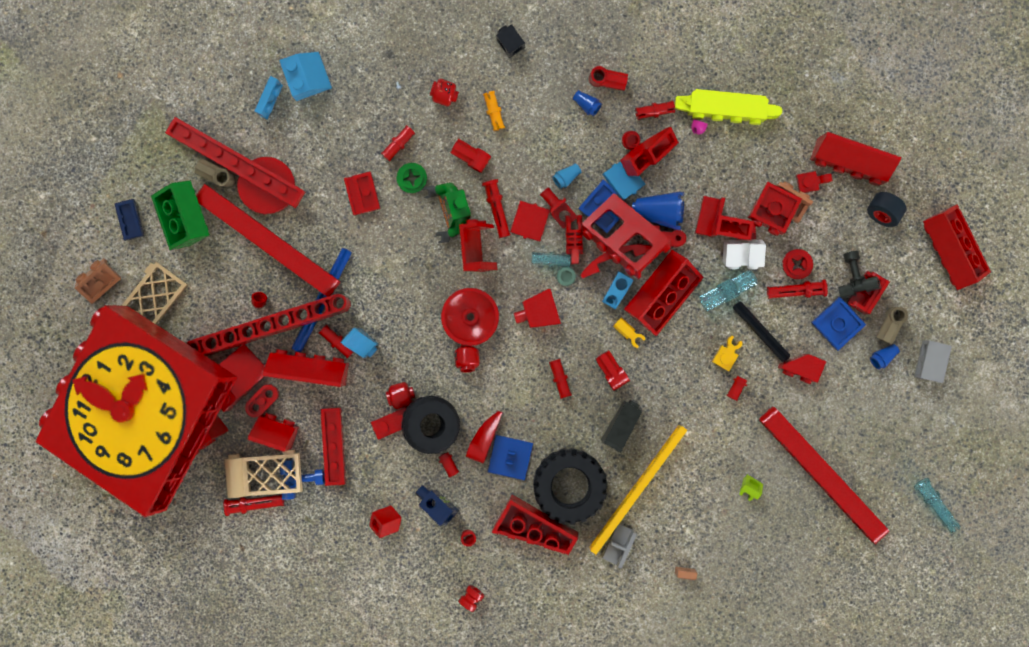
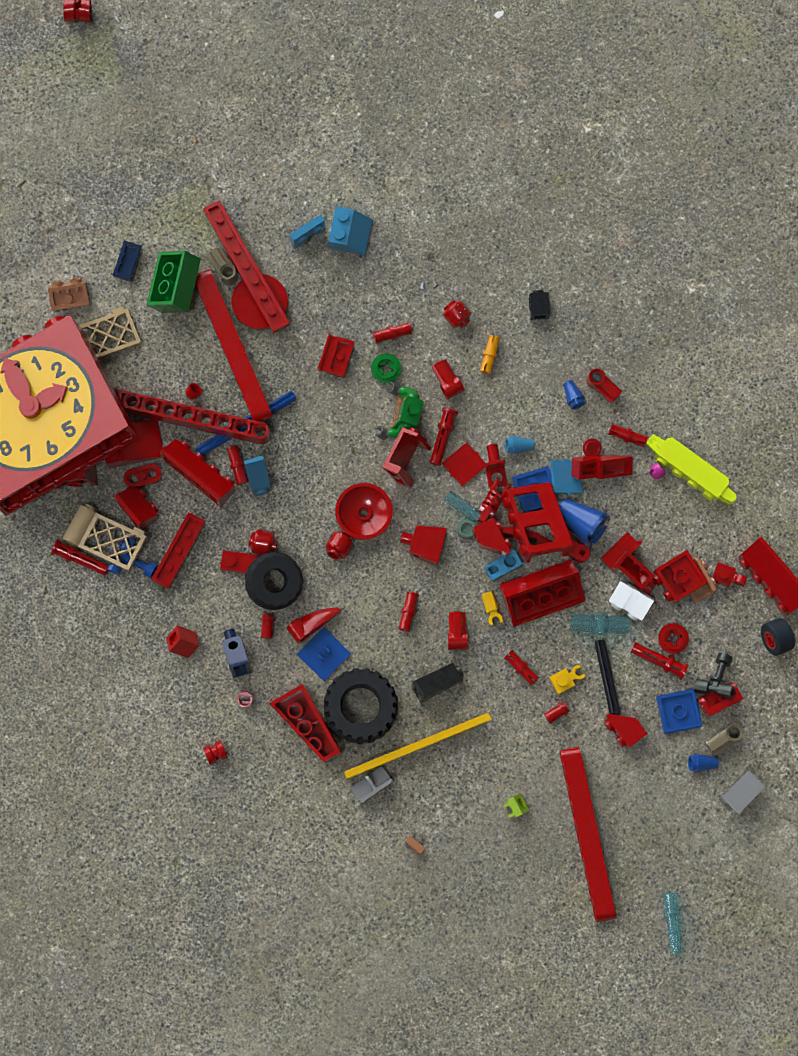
camera: 30 degrees right, 10 degrees down
(594, 275) = (490, 537): none -> red slope
(685, 368) = (521, 667): none -> red pin

